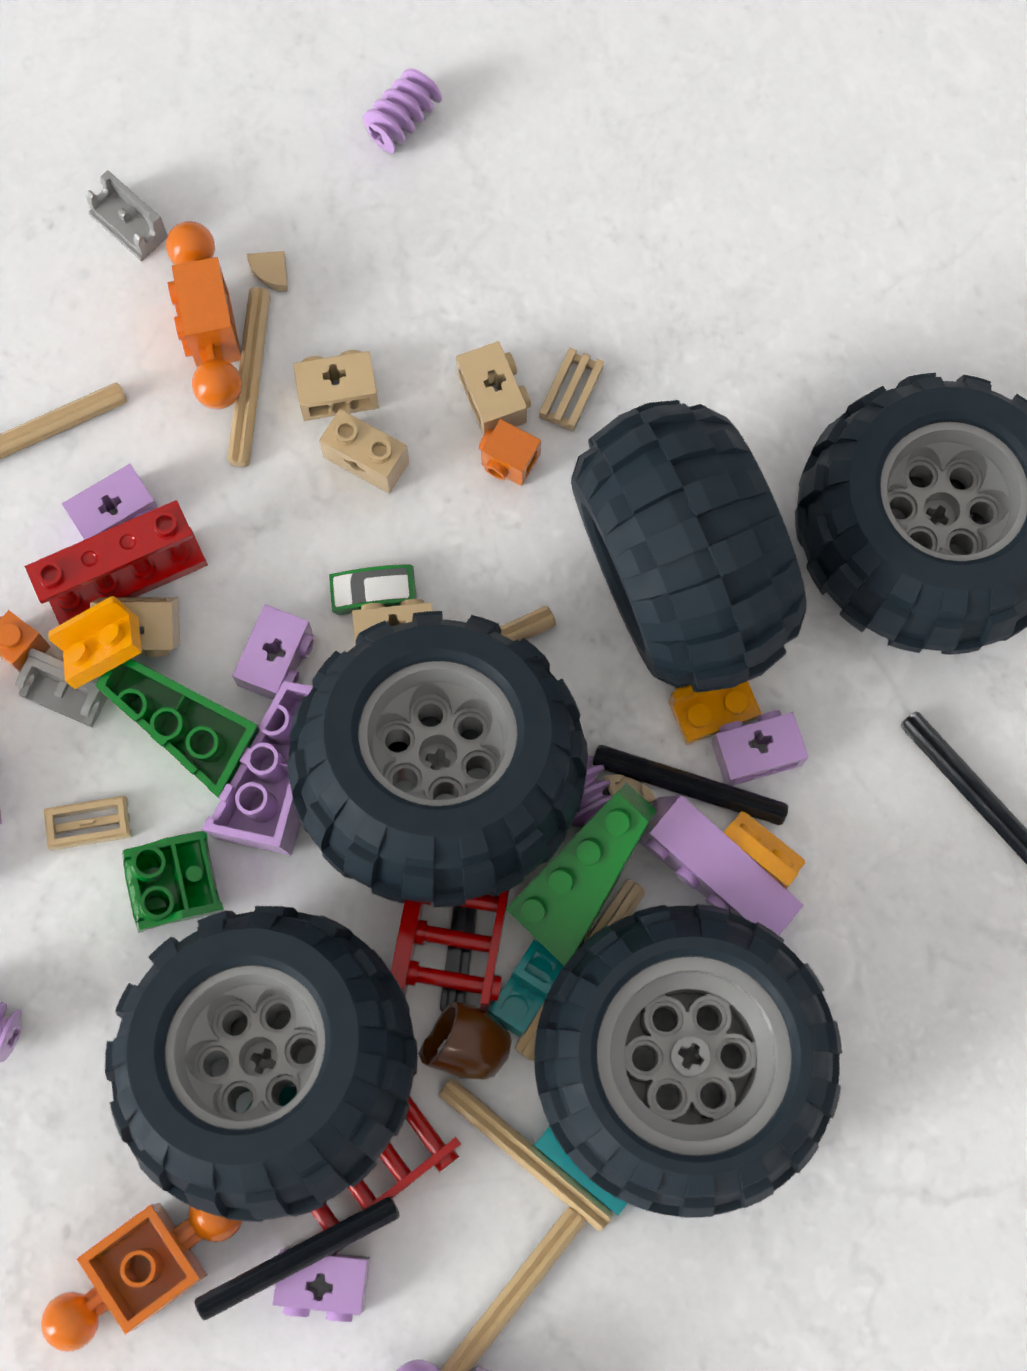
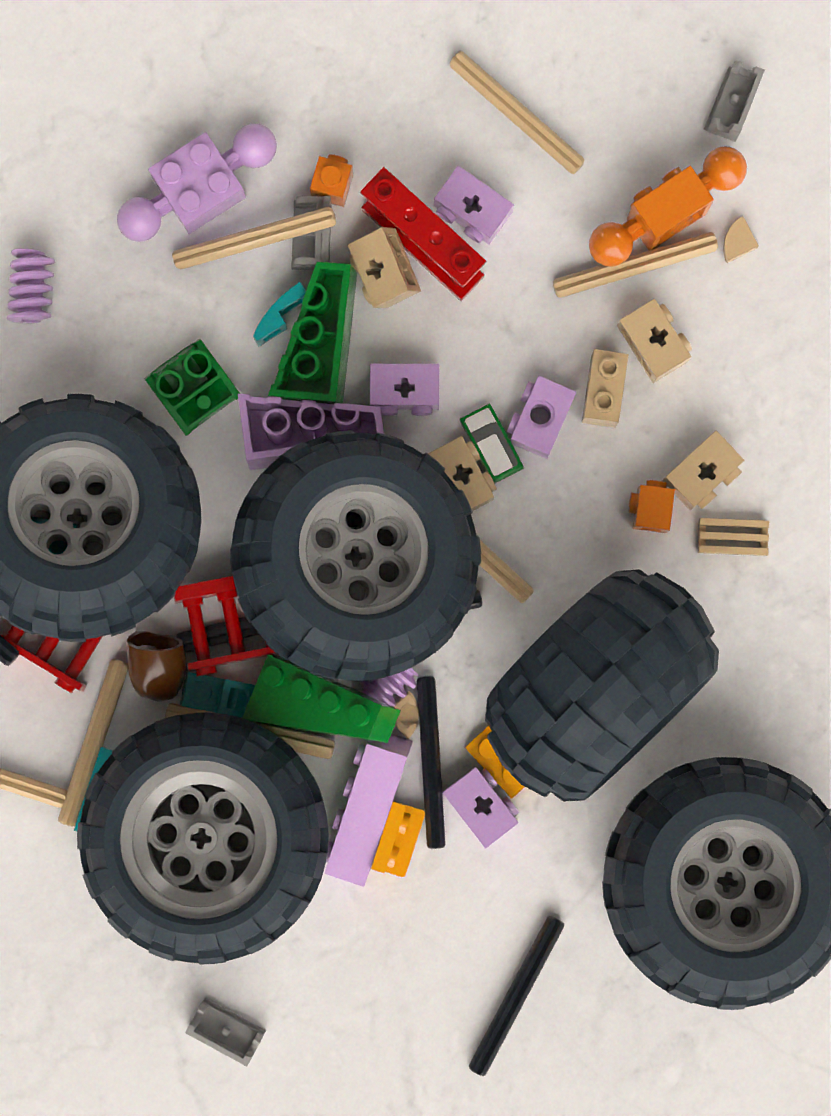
camera: 70 degrees right, 10 degrees up
(38, 749) = (254, 238): none -> tan axle
(97, 641) = (350, 248): light orange bracket -> none
(121, 818) = (228, 325): tan tile -> none
(140, 762) = (272, 322): none -> teal slope
(359, 505) = (556, 401): none -> lavender brick
(910, 1128) = (225, 1031): none -> light grey hinge

